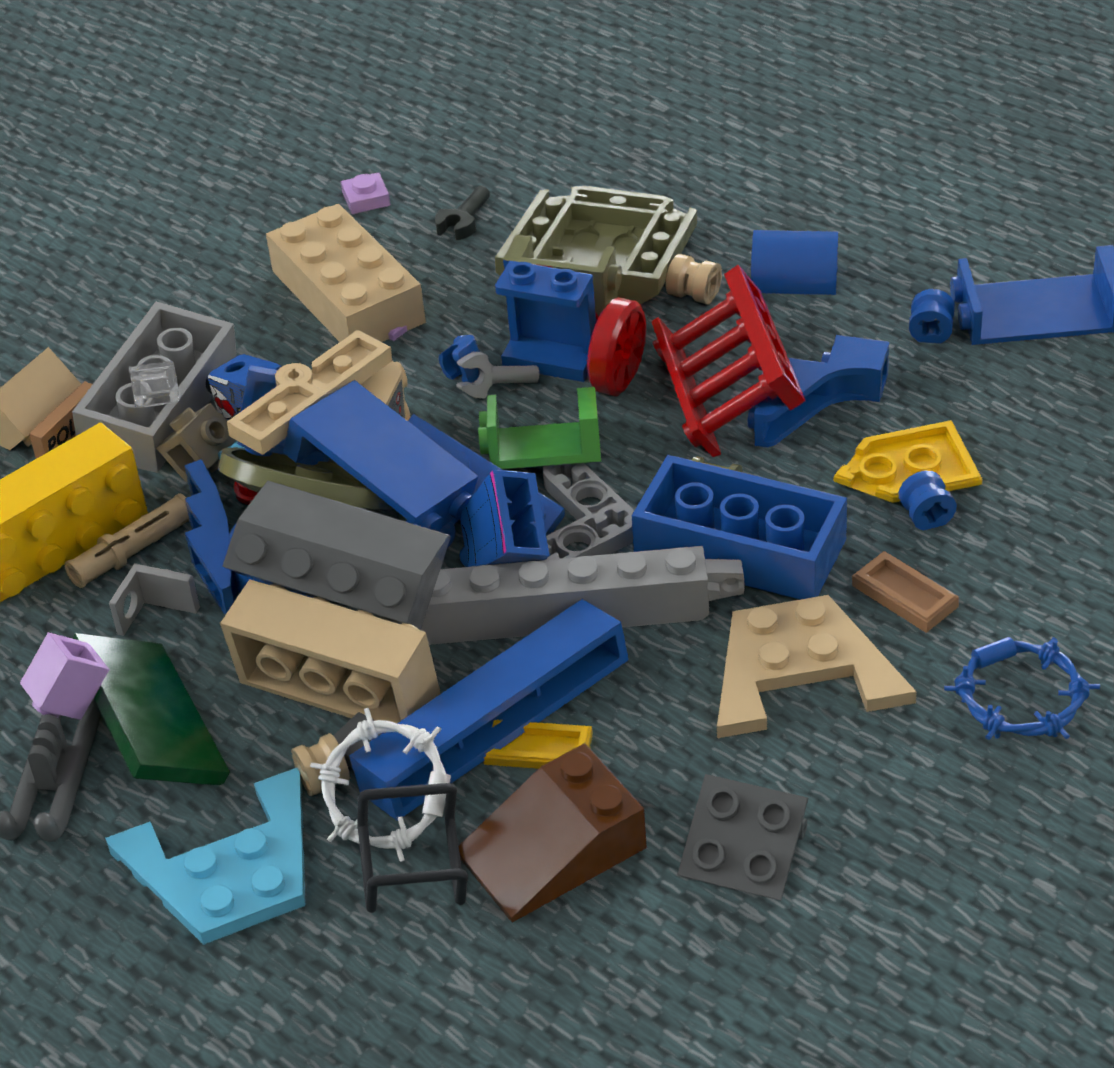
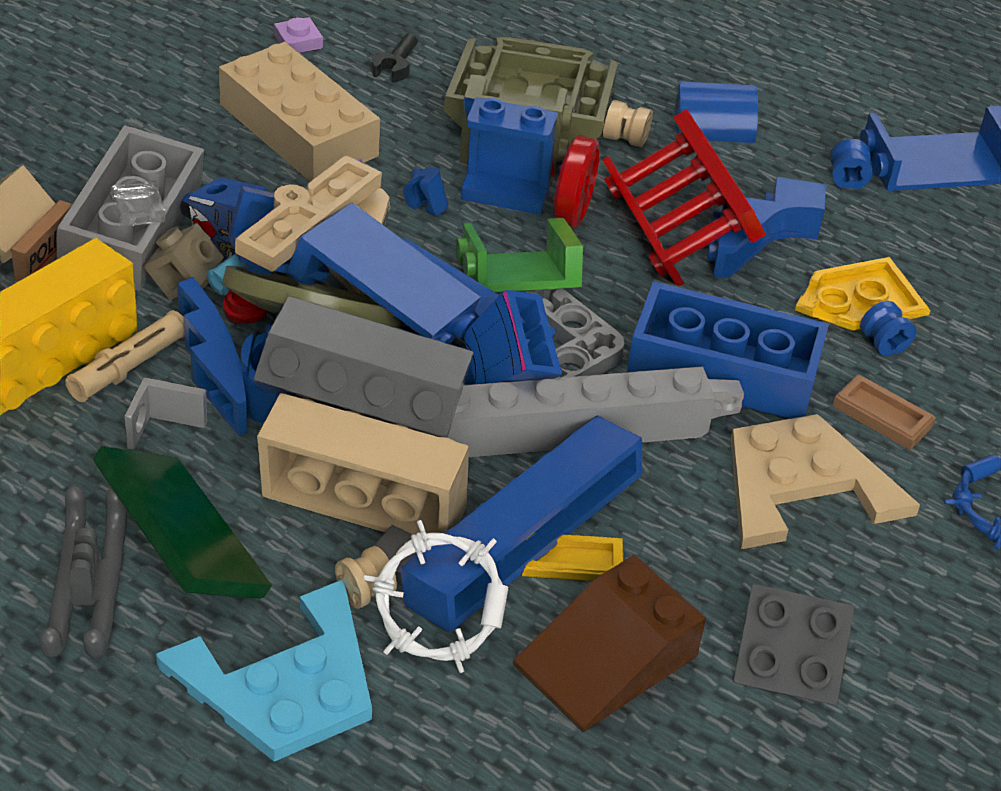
camera: 15 degrees left, 0 degrees up
(64, 676) = (98, 489): lavender brick -> none
(456, 874) = (521, 687): black piece -> none
(493, 374) = (458, 205): light grey bar -> none

